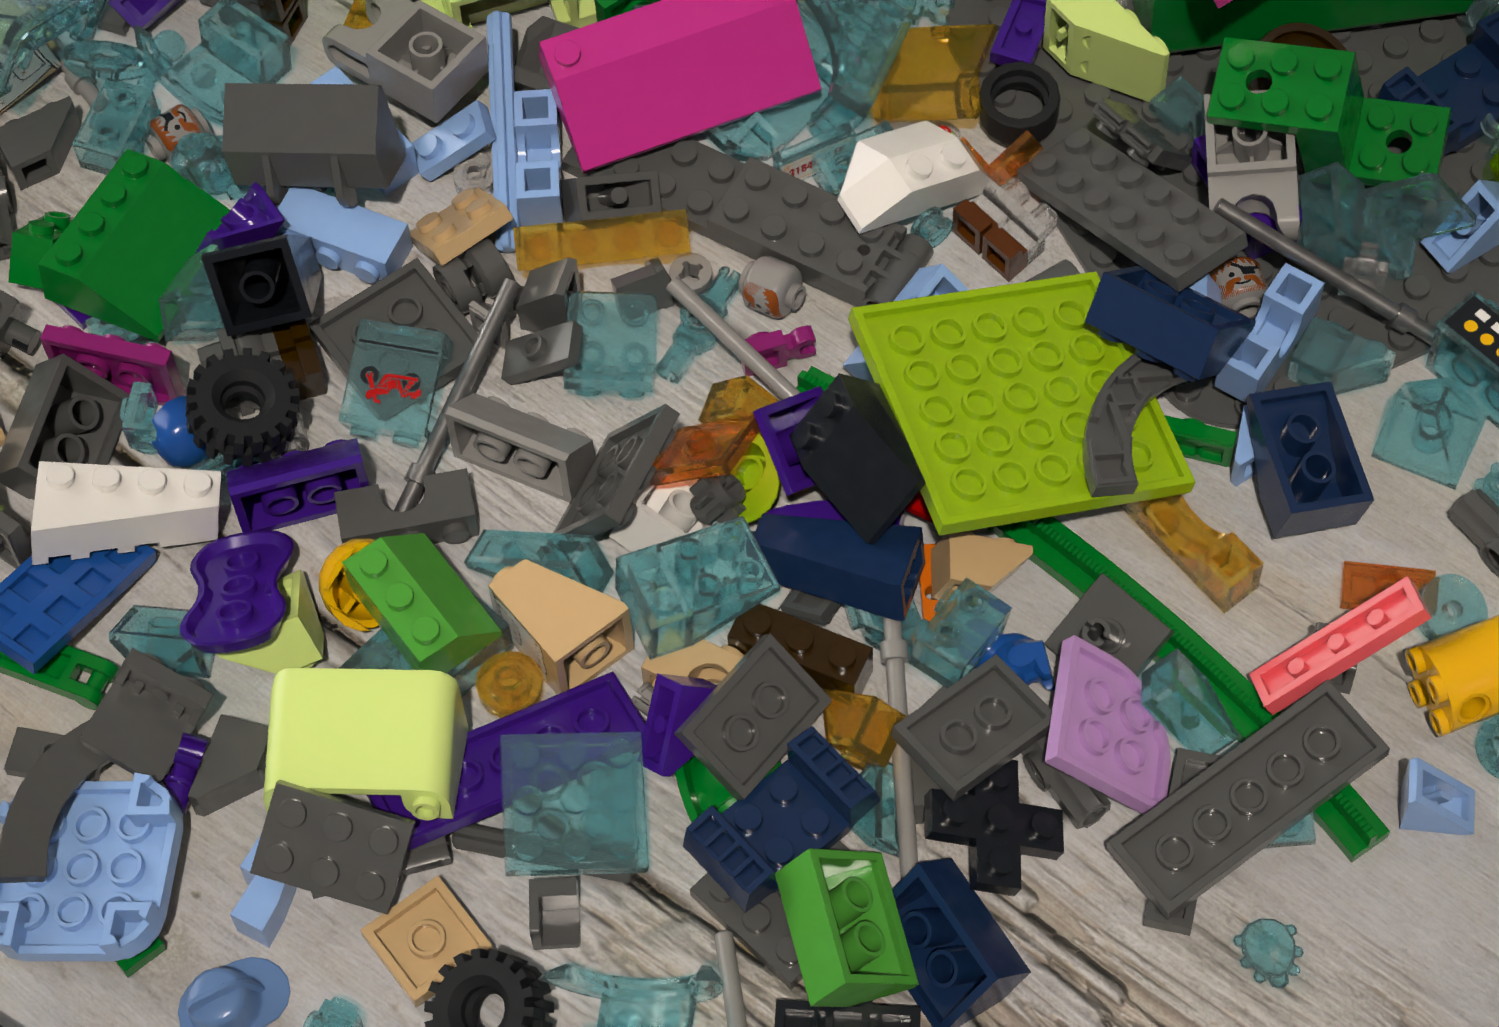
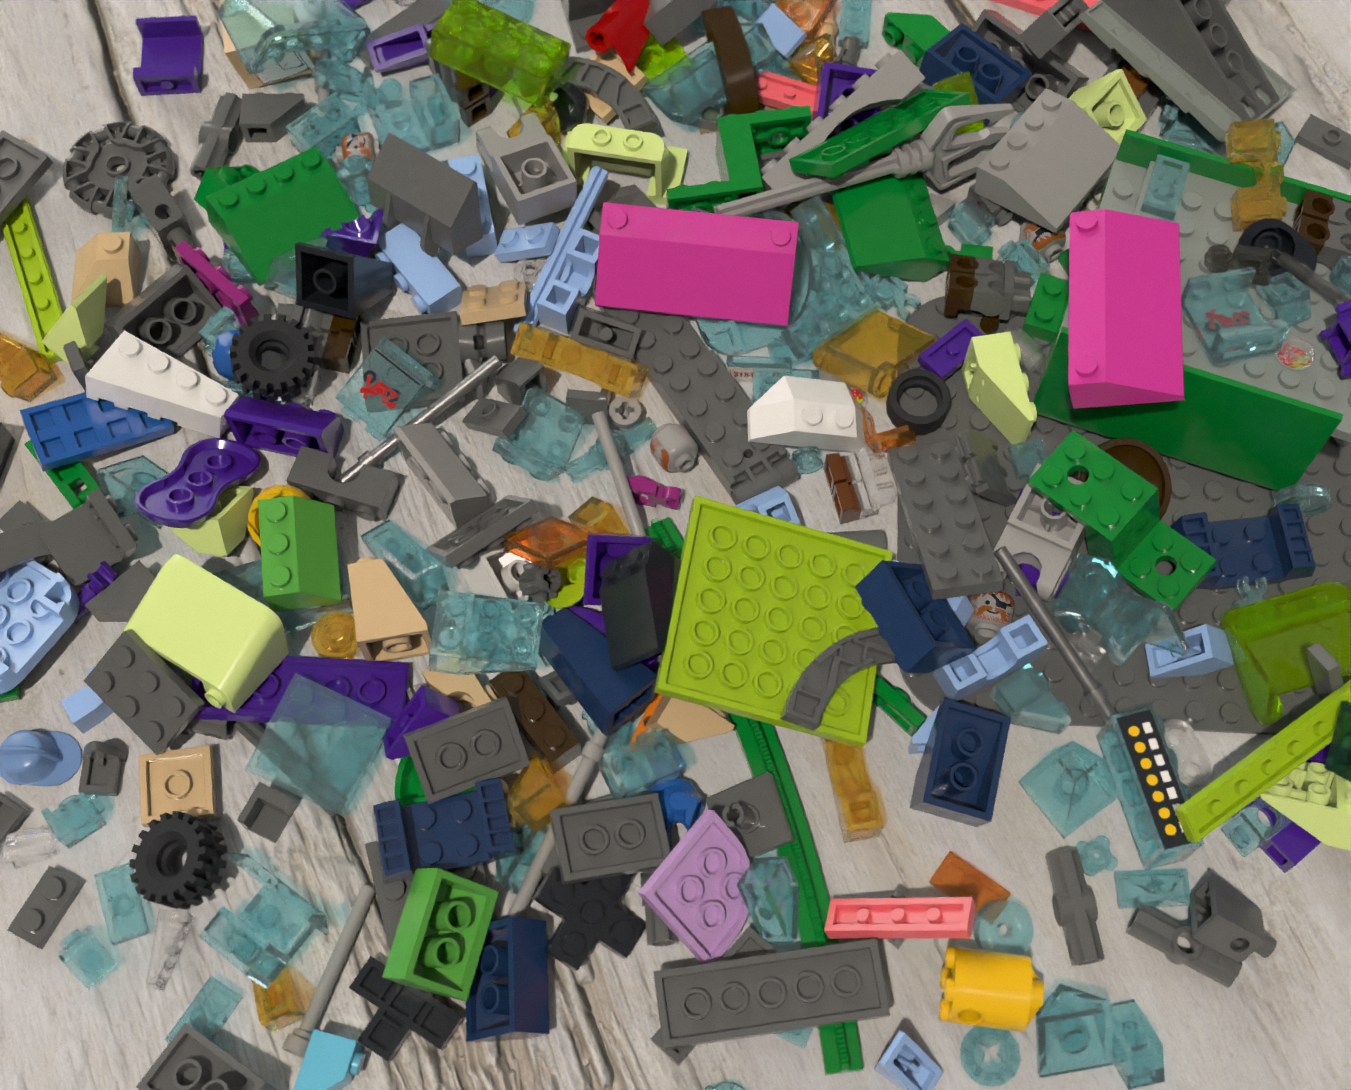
camera: 25 degrees right, 5 degrees up
(319, 969) = (101, 769): none -> dark grey tile

